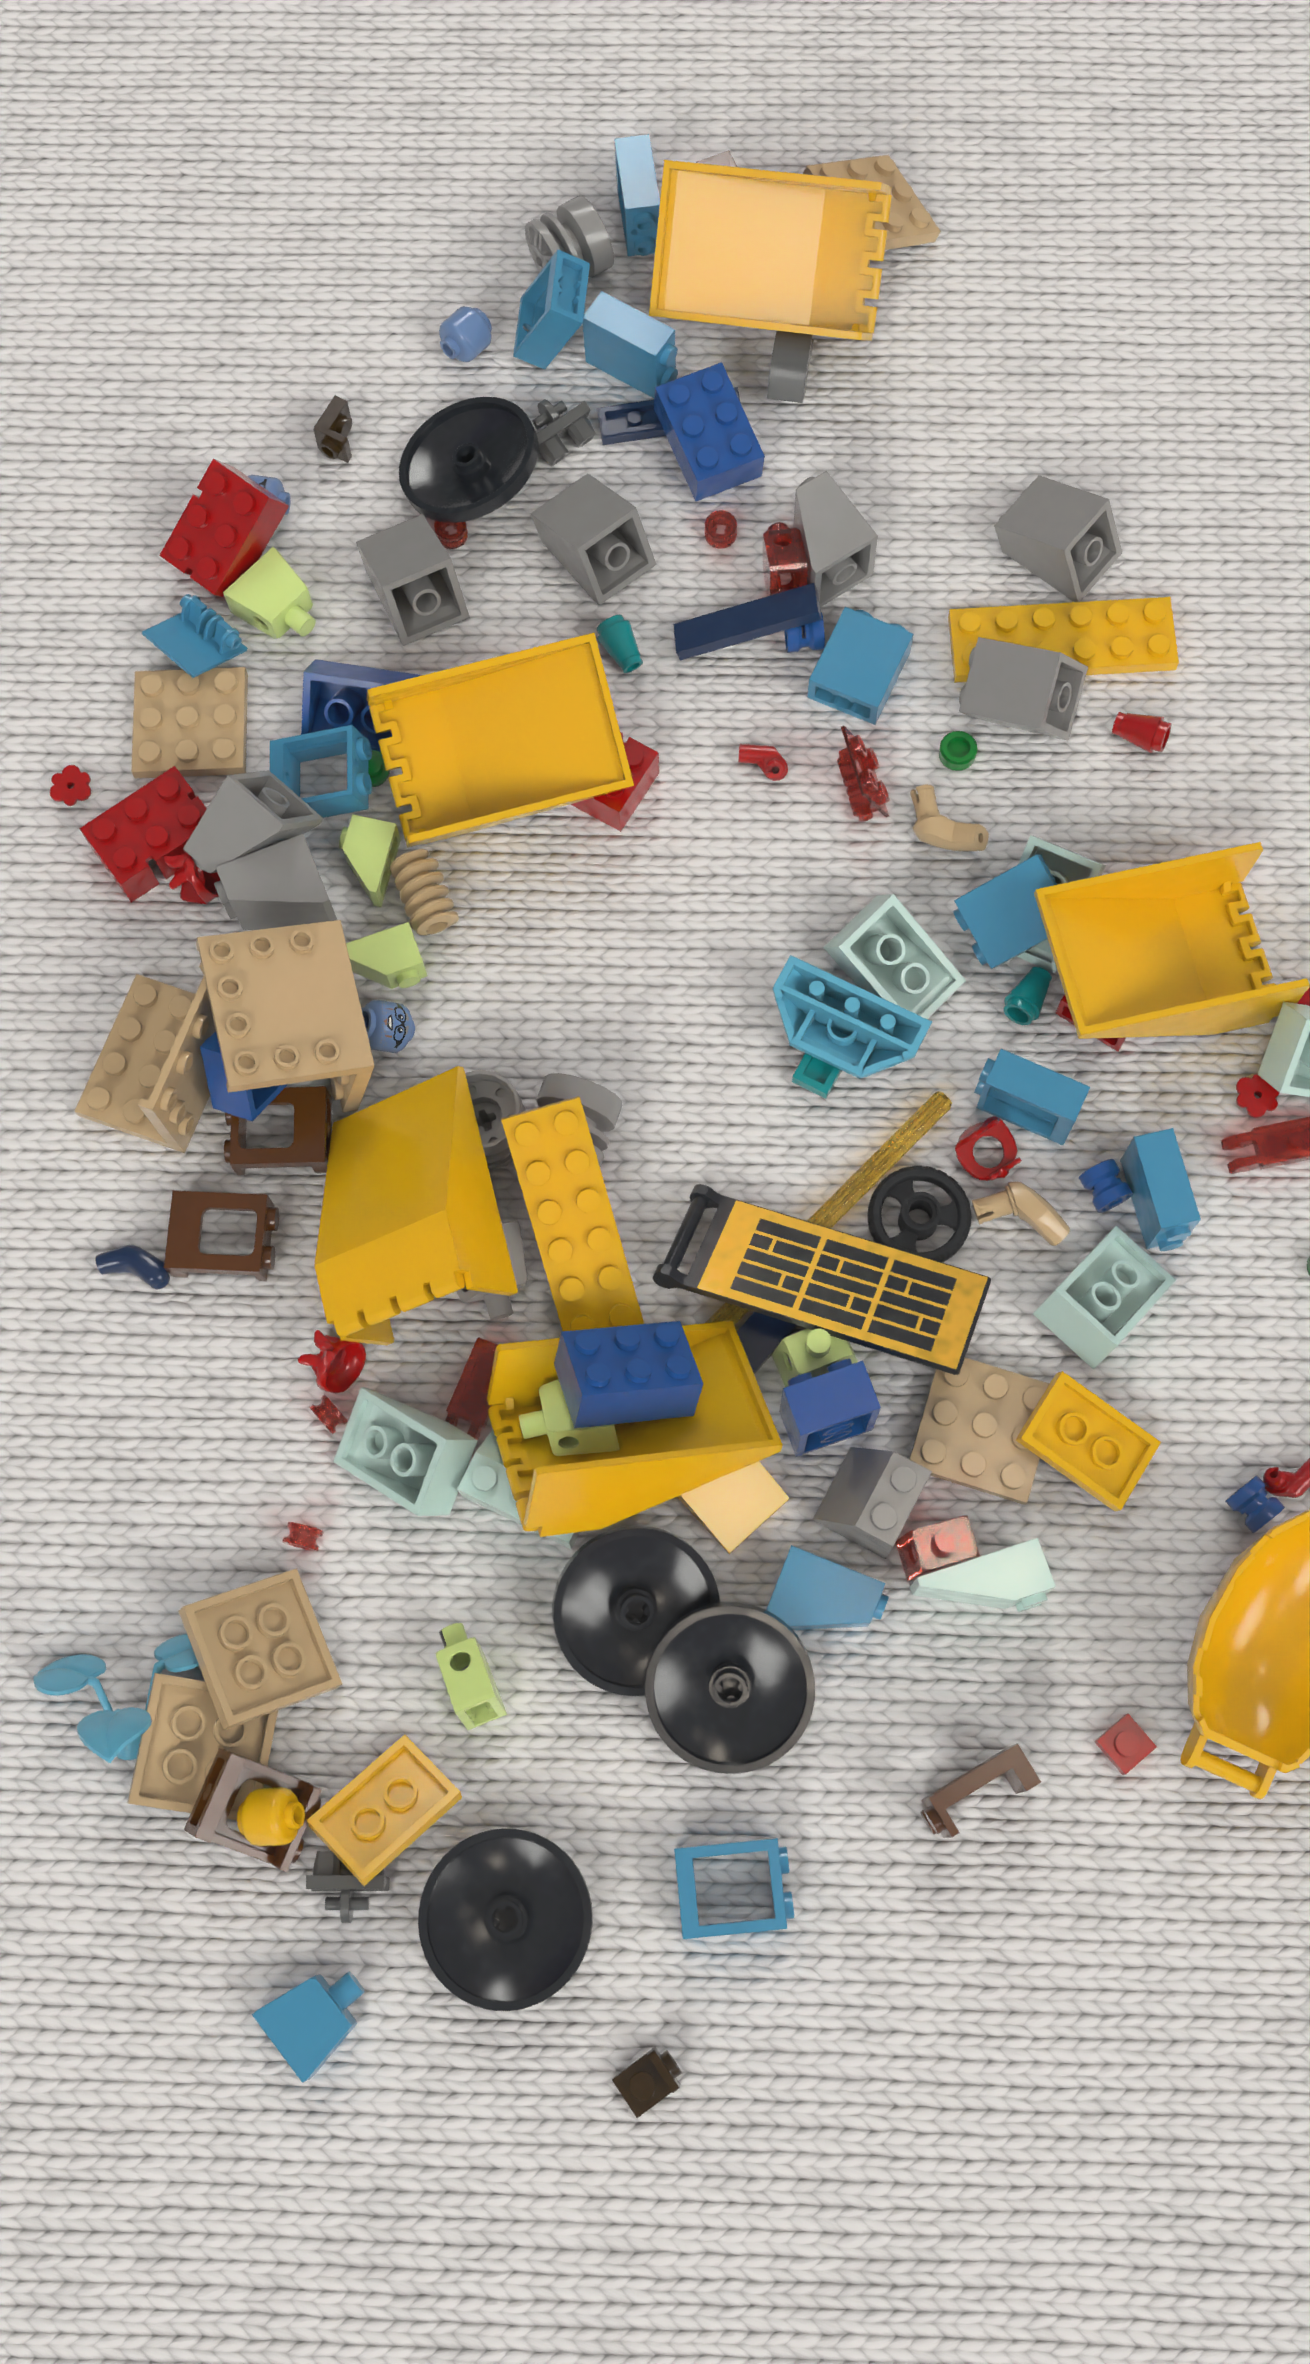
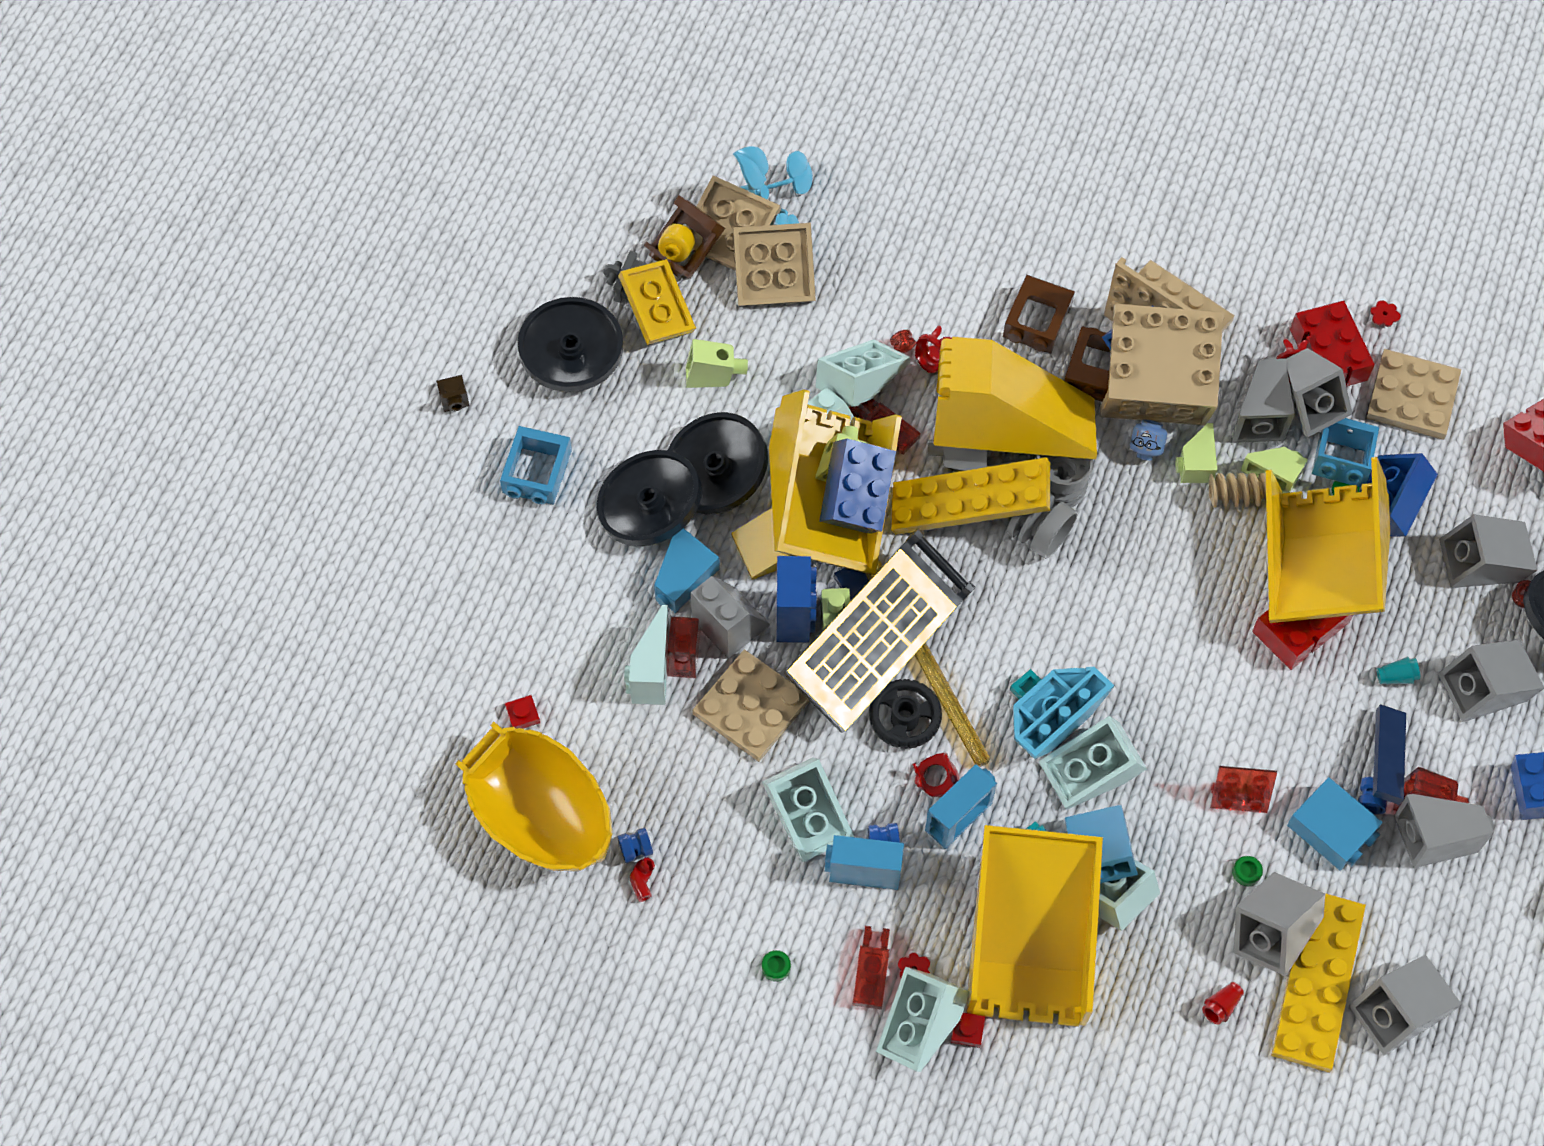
camera: 105 degrees right, 10 degrees down
(135, 1261) = (1039, 267): dark blue arm -> none
(196, 637) = (1474, 408): dark azure hinge -> none
(271, 597) = (1497, 464): yellowish green torso -> none
(302, 1536) = (833, 308): clear red bush -> none
(310, 2021) = (558, 239): dark azure torso -> none
(730, 533) = (1484, 765): clear red bush -> none
(766, 758) = (1278, 740): red arm -> none
(939, 830) = (1186, 828): tan arm -> none
(1009, 1762) = (532, 630): reddish brown window -> none
(1028, 1206) = (885, 782): tan arm -> none
(1088, 1441) = (715, 756): yellow plate -> none

